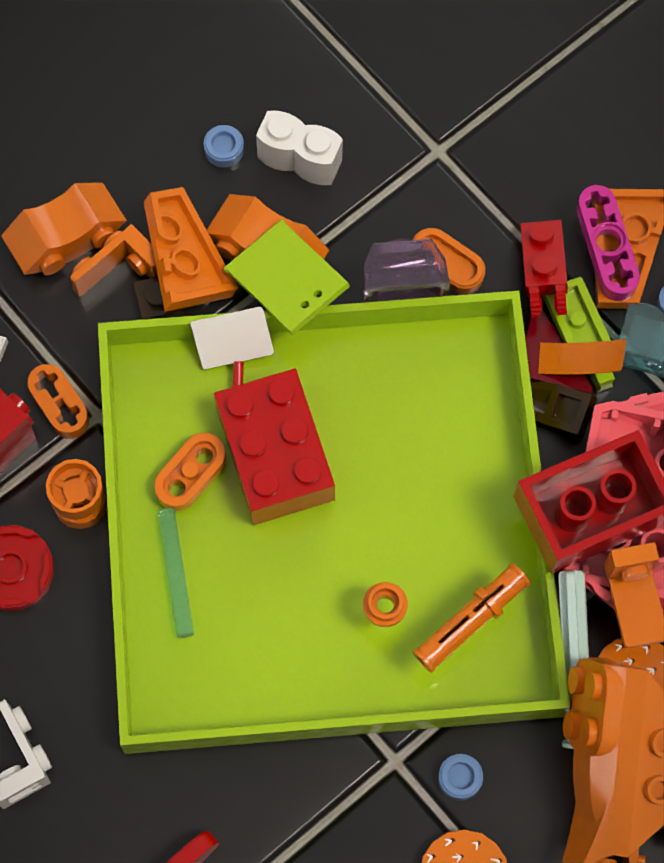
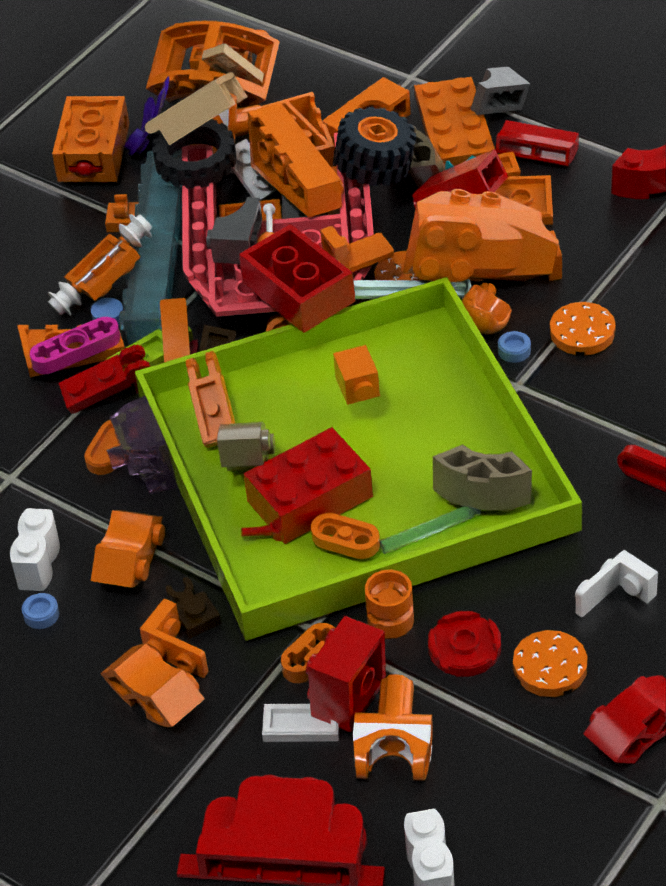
camera: 100 degrees left, 25 degrees down
(184, 253) = (154, 586): orange wing -> none
(200, 639) = (482, 479): none -> dark tan brick
(232, 337) = (224, 532): white sticker -> none
(286, 277) = (163, 504): lime container -> none
(345, 382) = (244, 445): none -> dark tan brick
(385, 591) = (413, 377): orange plate -> none
(403, 533) = (356, 374): none -> orange brick
(445, 366) = (209, 398): none -> orange hinge
(485, 605) = (394, 325): orange pin -> none
(524, 754) = (486, 309): none -> orange hair

